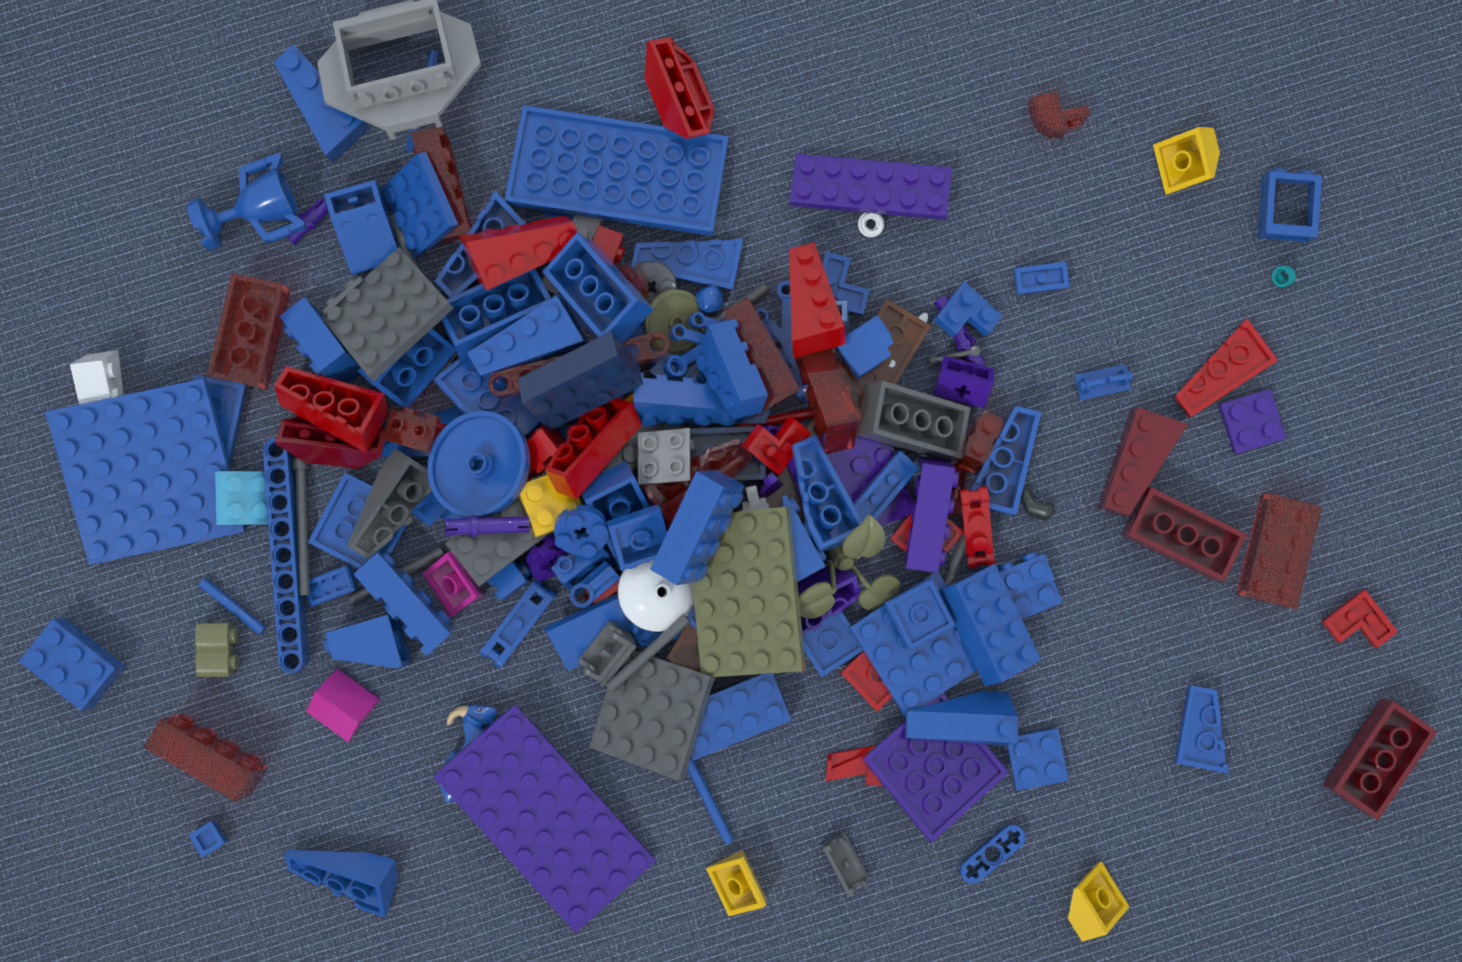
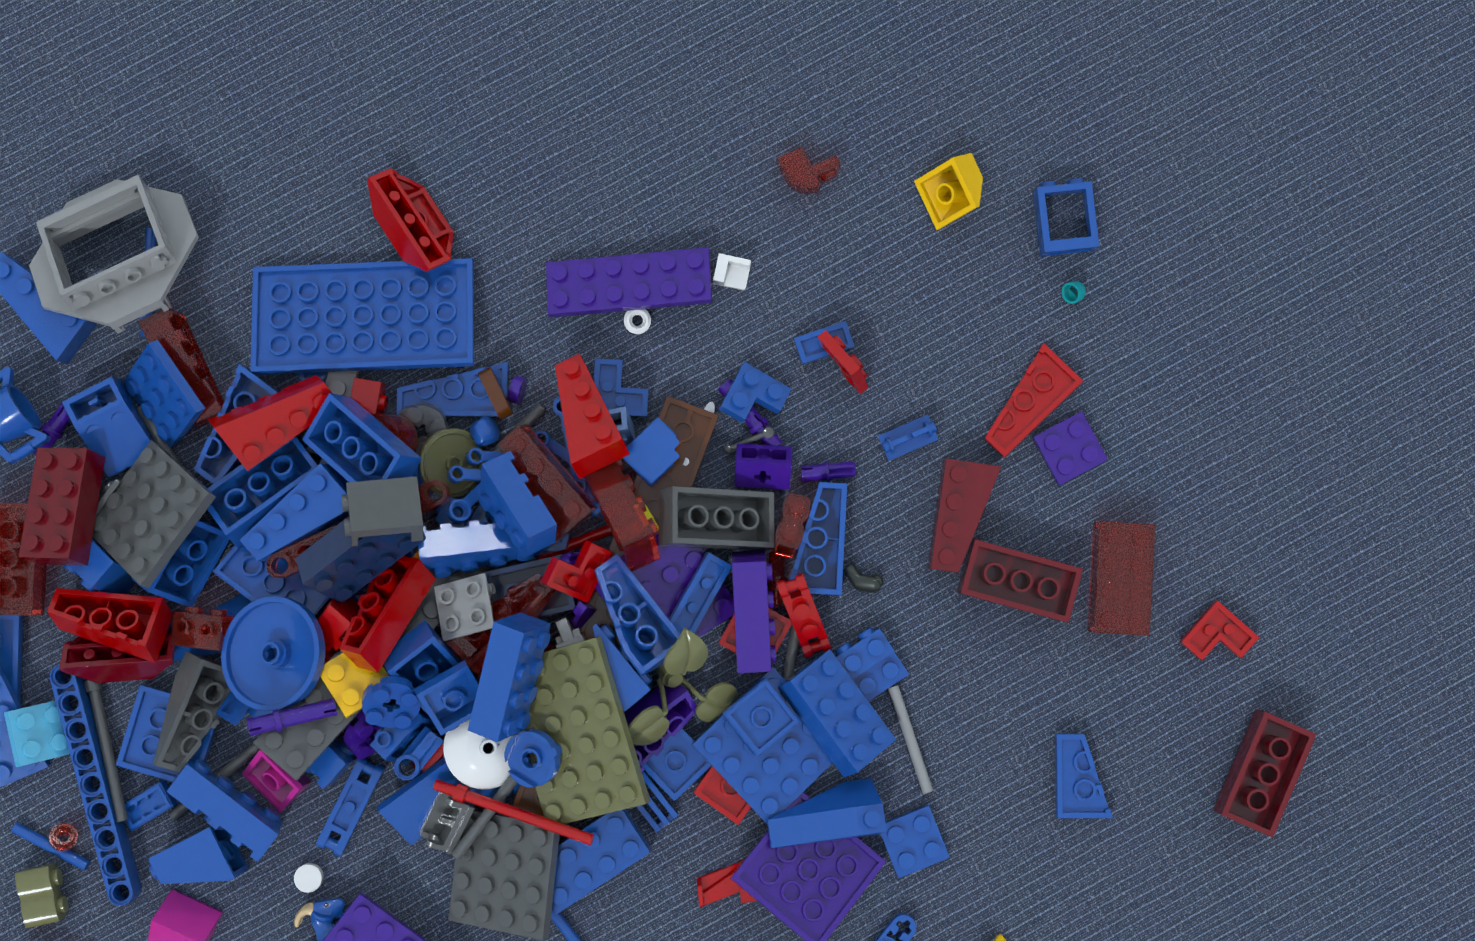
camera: 10 degrees left, 0 degrees up
(246, 592) = (59, 829): none -> clear red plate
(306, 291) = (62, 506): none -> dark red brick
(466, 682) = (308, 877): none -> white tile
(612, 346) = (383, 508): none -> dark grey panel
(628, 631) = (463, 794): none -> red bar
(717, 606) = (547, 755): none -> blue plate
(728, 264) = (495, 393): none -> reddish brown beam
(746, 266) = (517, 389): none -> dark purple tile
(808, 694) = (664, 820): none -> blue tile
(968, 195) = (732, 272): none -> white panel
(1022, 398) = (827, 471): none -> dark purple axle
(1051, 661) = (910, 739): none -> light grey bar
(1063, 302) = (849, 365): none -> red plate

